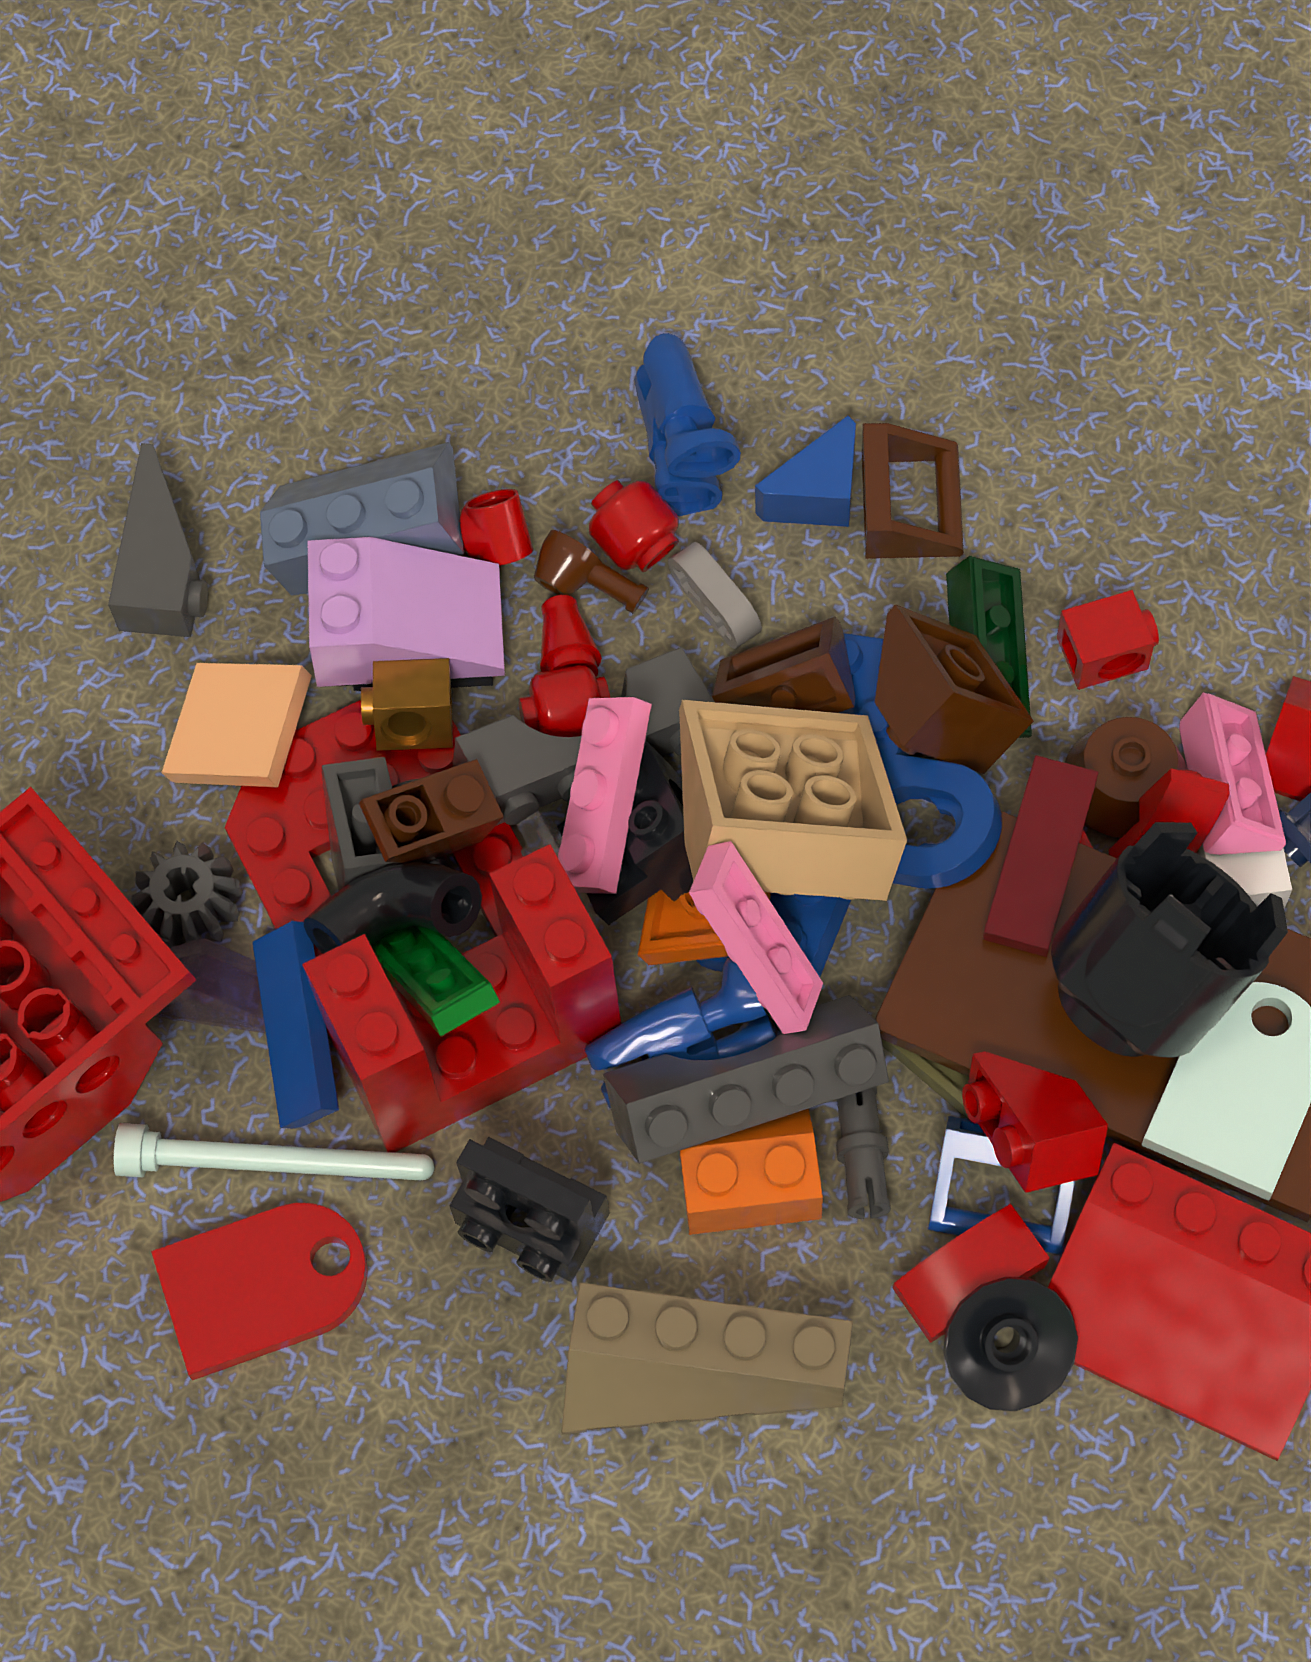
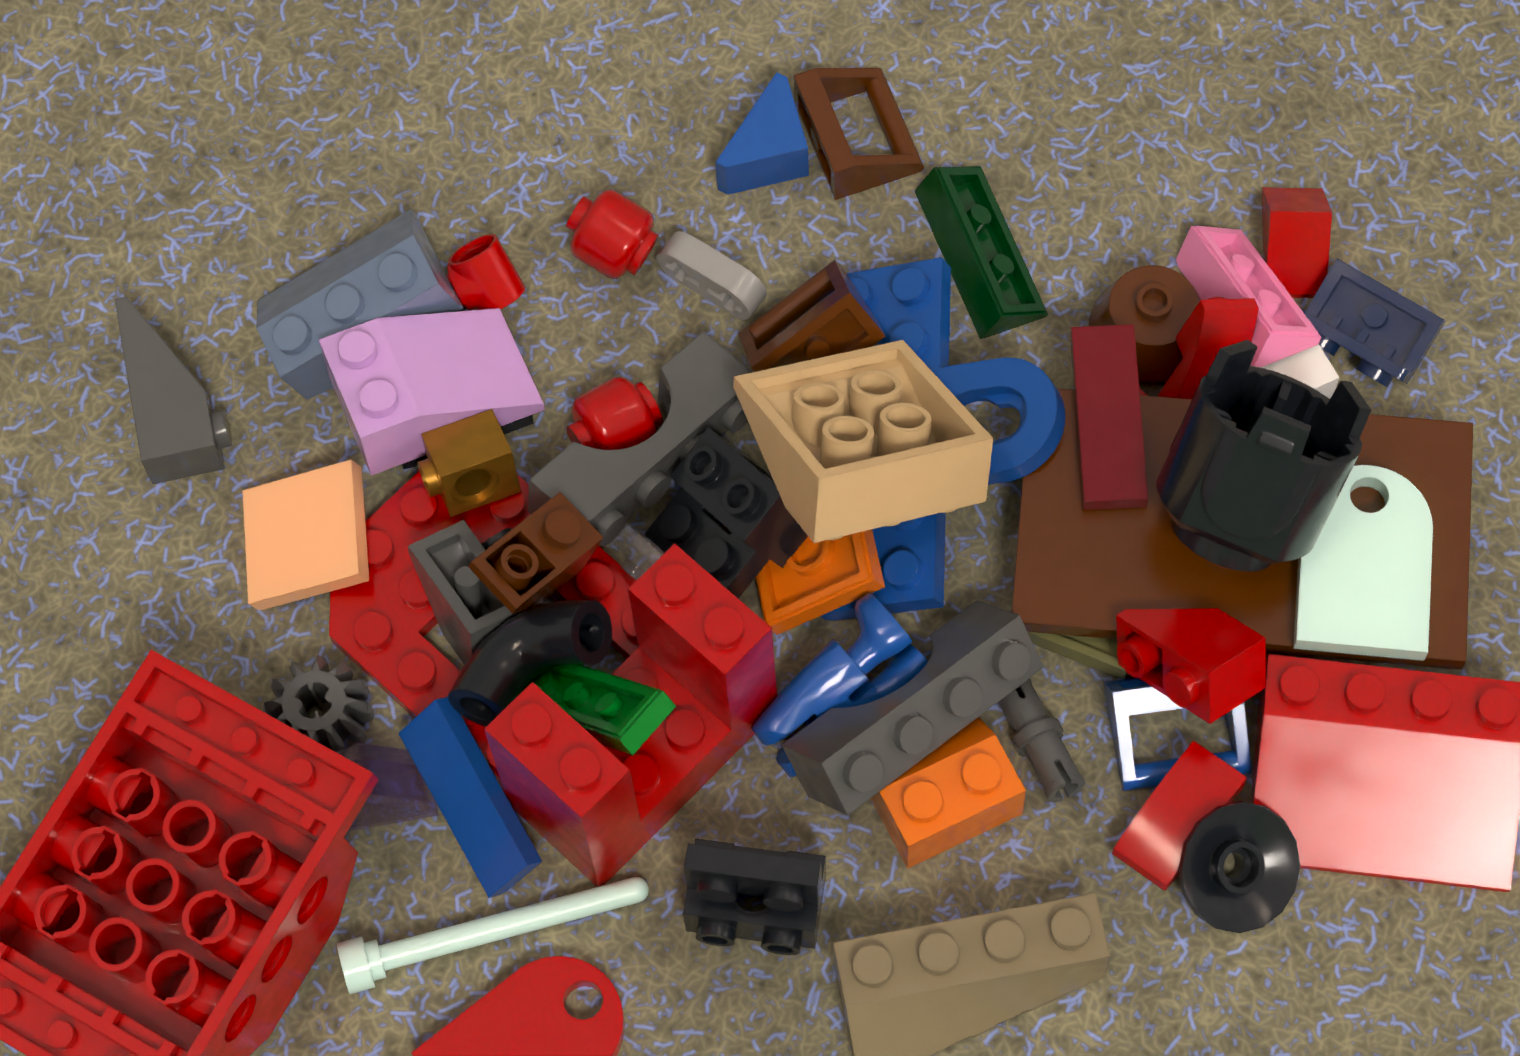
camera: 20 degrees left, 0 degrees up
(566, 636) = (586, 356): red cone -> none
(568, 565) = (564, 288): reddish brown bar -> none
(603, 792) = (687, 479): bright pink plate -> none
(680, 429) = (623, 130): blue piece -> none
(756, 937) = (885, 571): bright pink plate -> none
(945, 693) = (966, 297): reddish brown slope -> none
(1107, 639) = (1085, 205): red brick -> none

